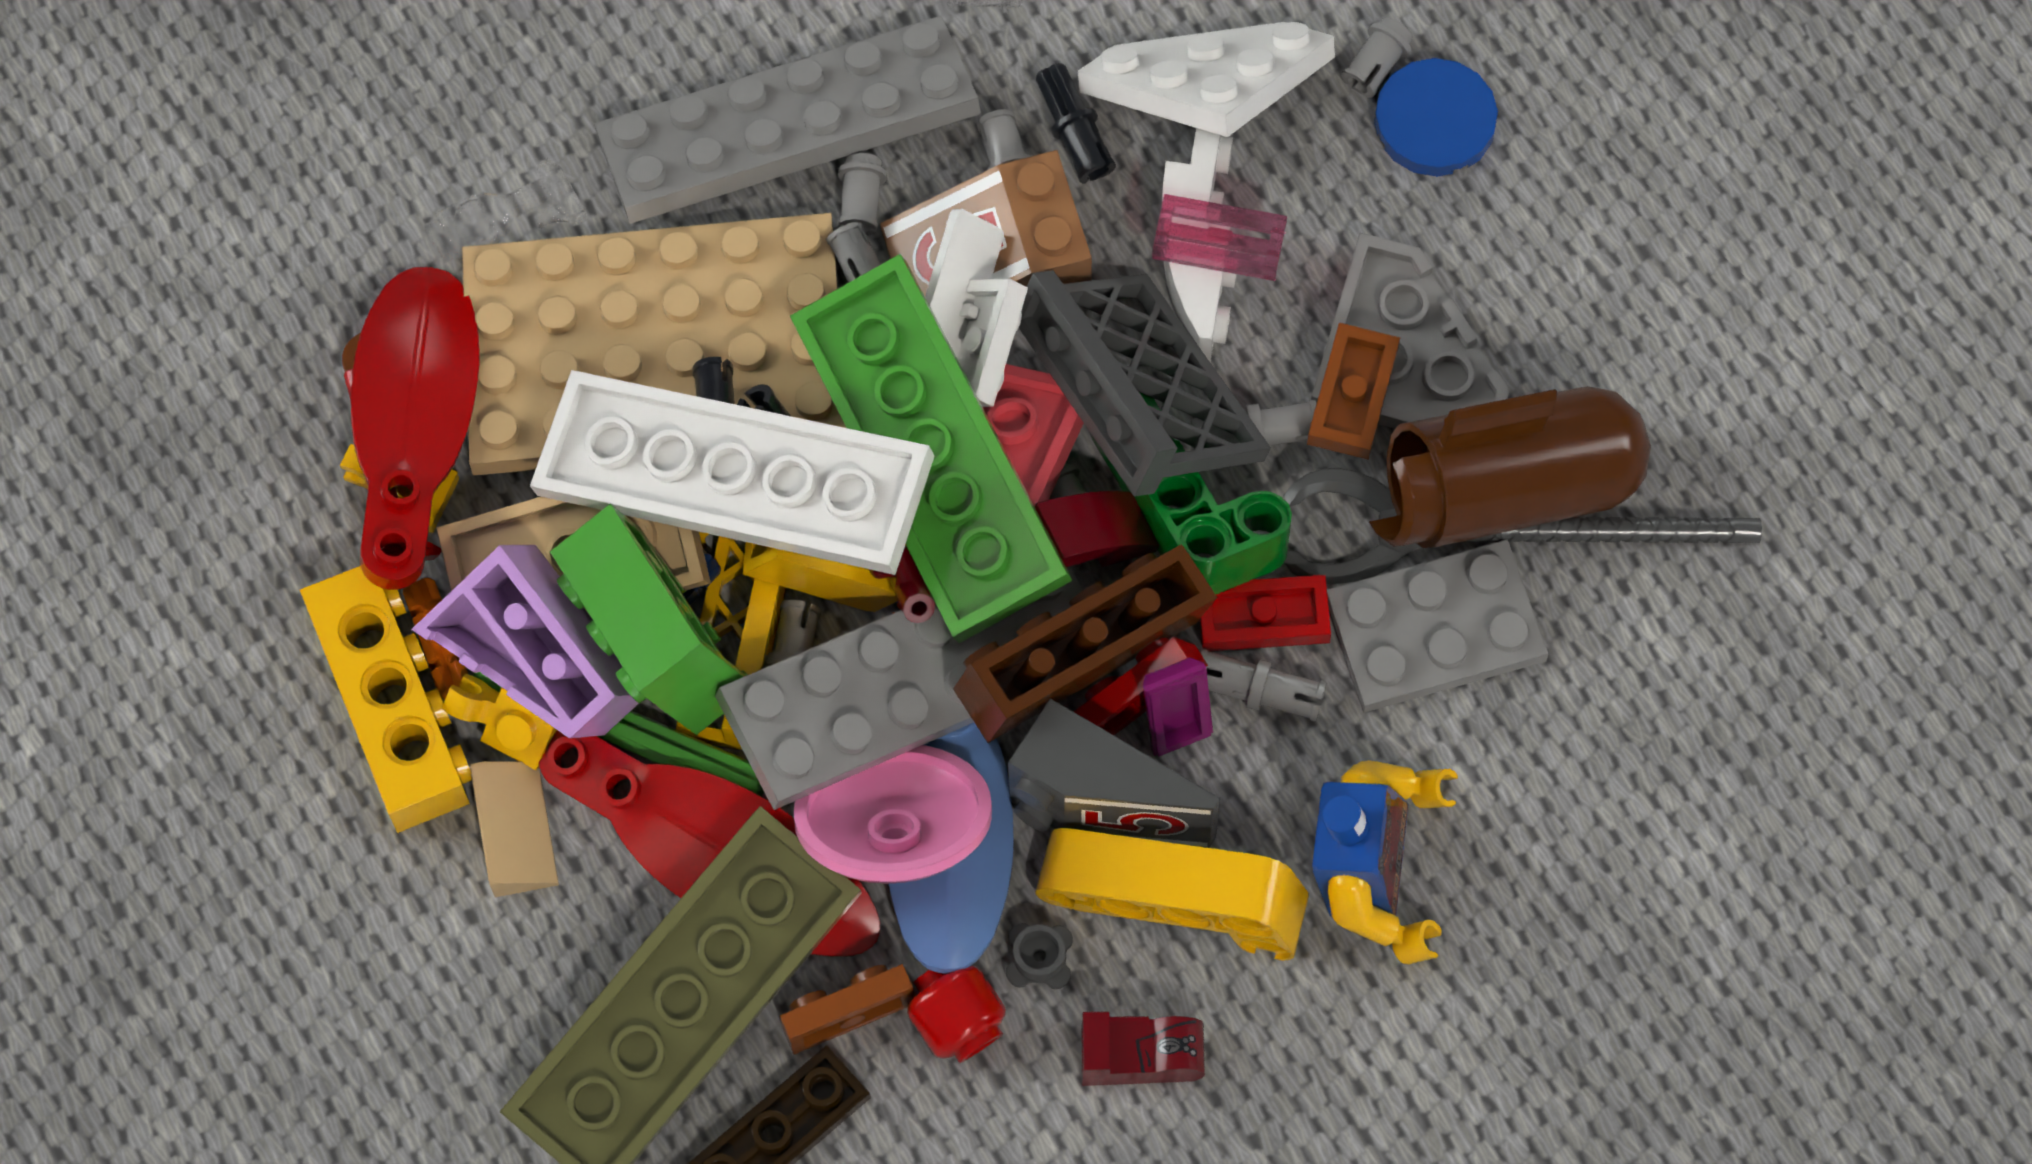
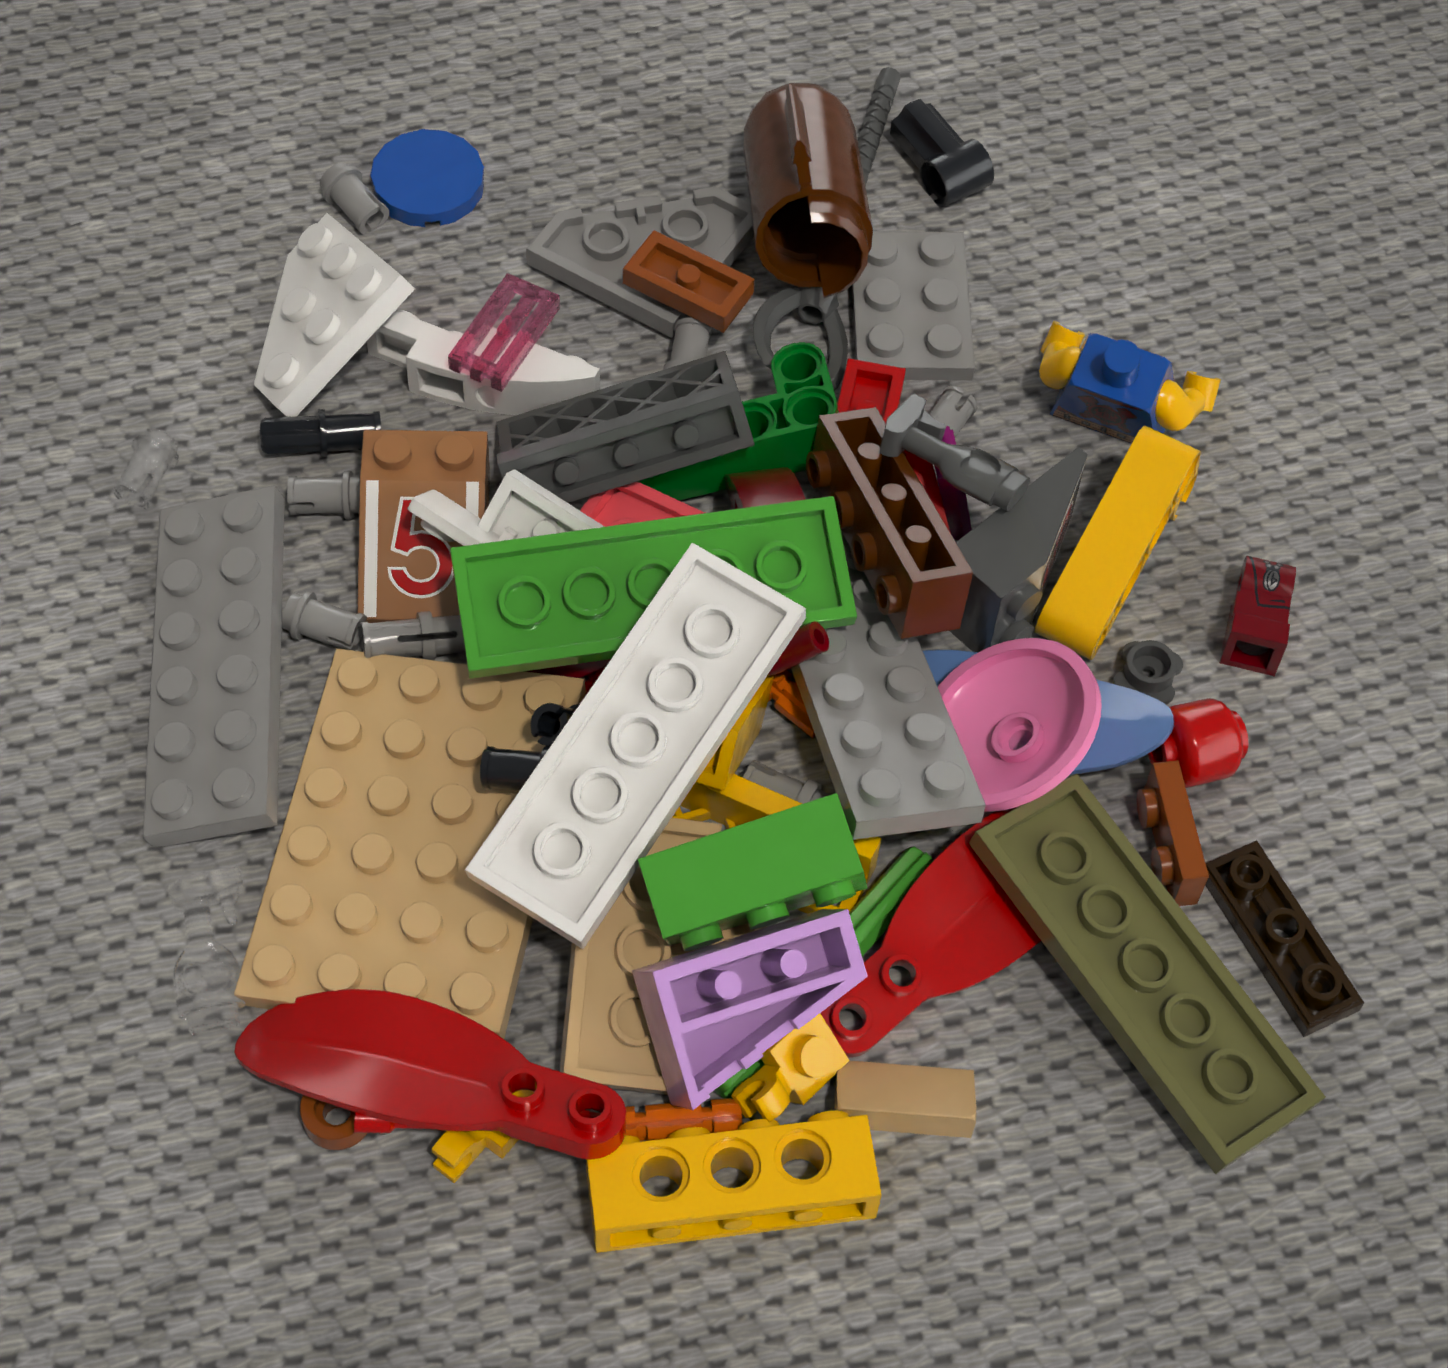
camera: 80 degrees left, 10 degrees down
(1145, 692) = (962, 466): none -> dark grey piece
(1642, 613) = (944, 160): none -> black piece

